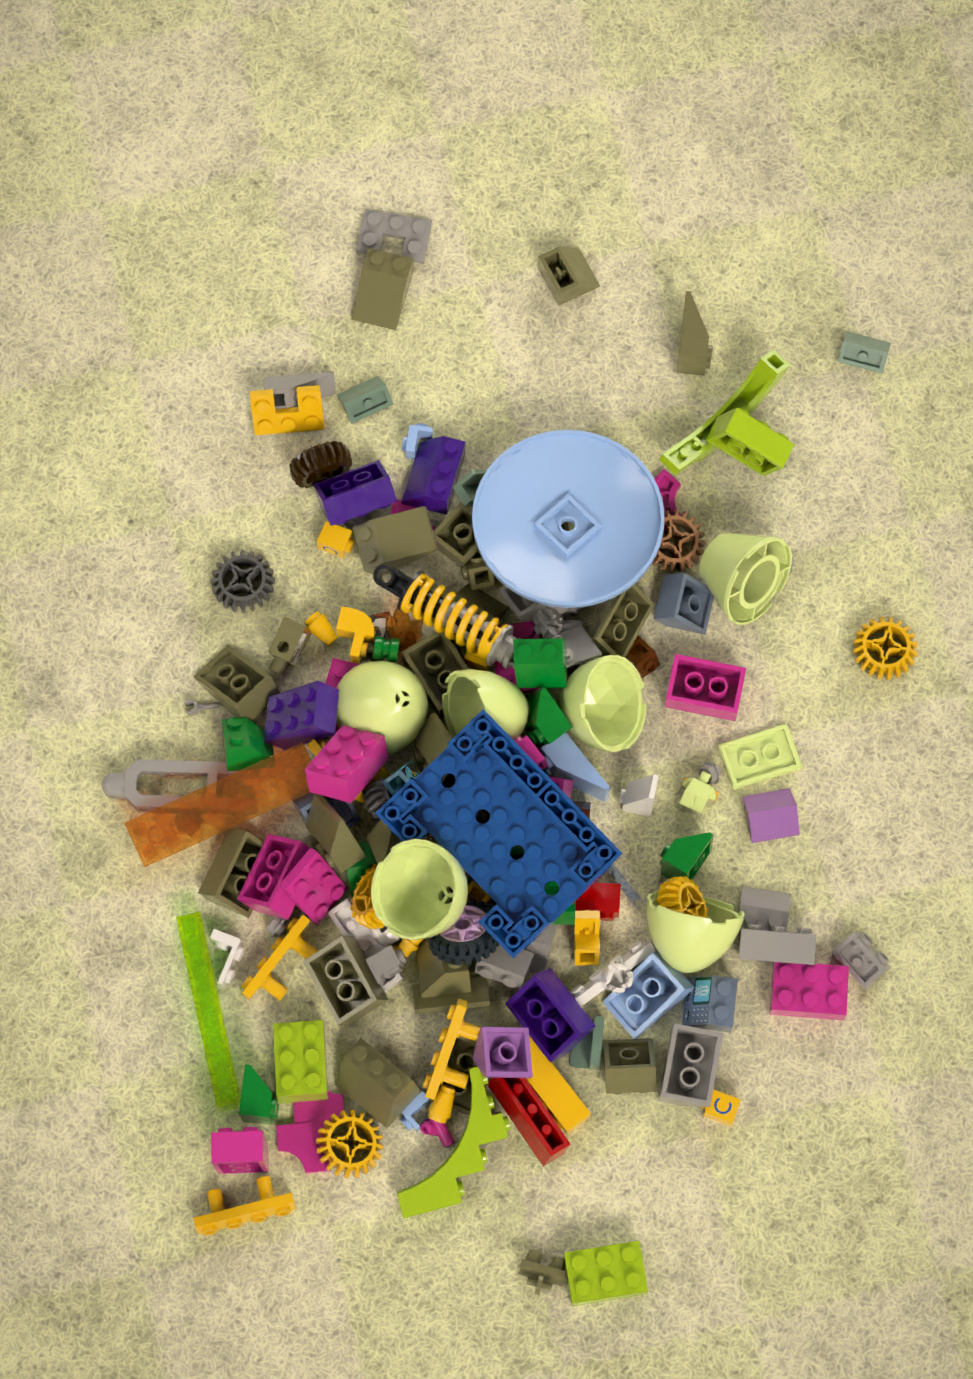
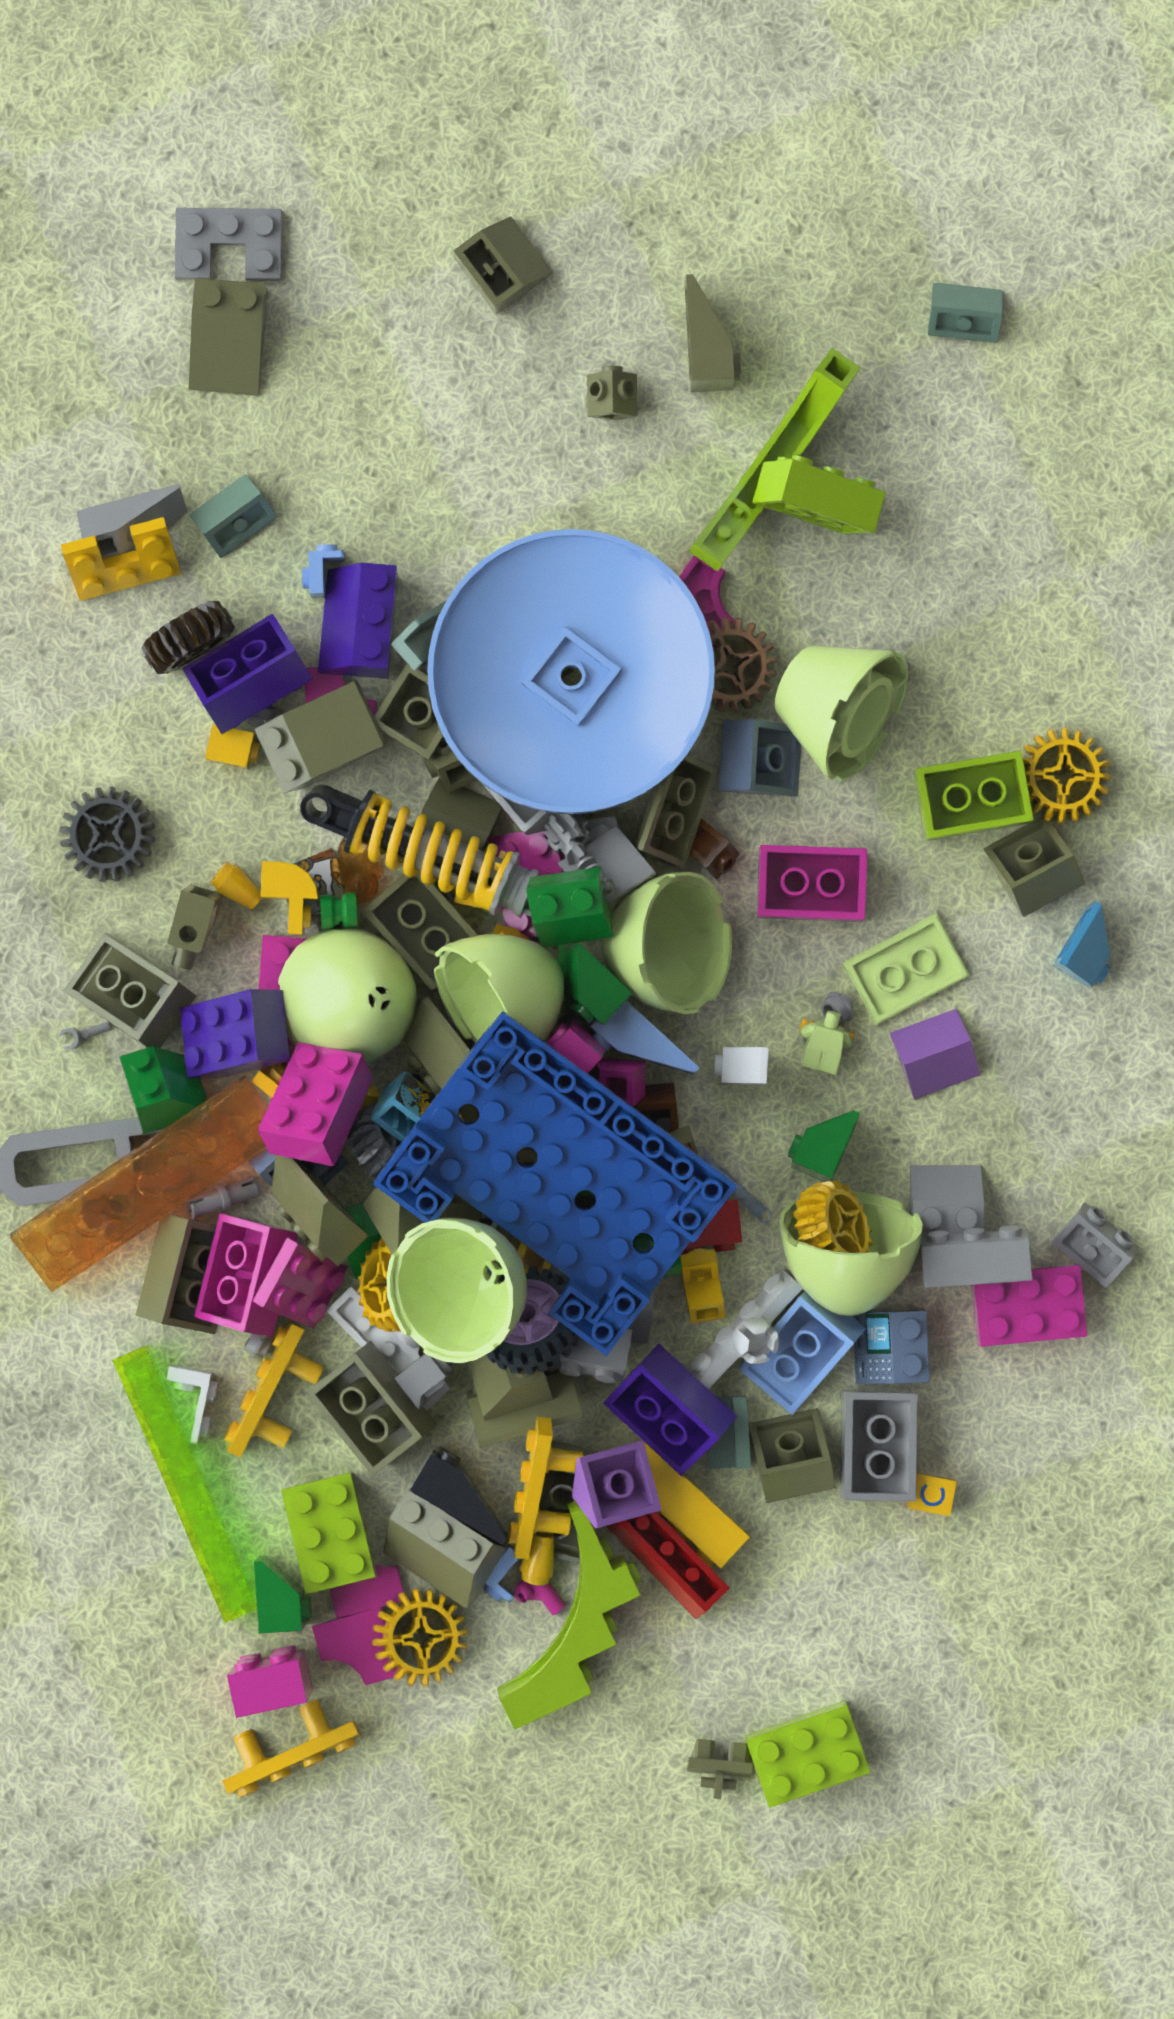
camera: 10 degrees left, 15 degrees up
(272, 825) = (222, 1197): none -> light grey pin
(387, 1038) = (453, 1491): none -> black slope
(625, 362) = (612, 394): none -> olive brick
(822, 649) = (973, 795): none -> lime brick
(858, 703) = (1034, 866): none -> olive slope
(884, 760) = (1086, 949): none -> dark azure slope

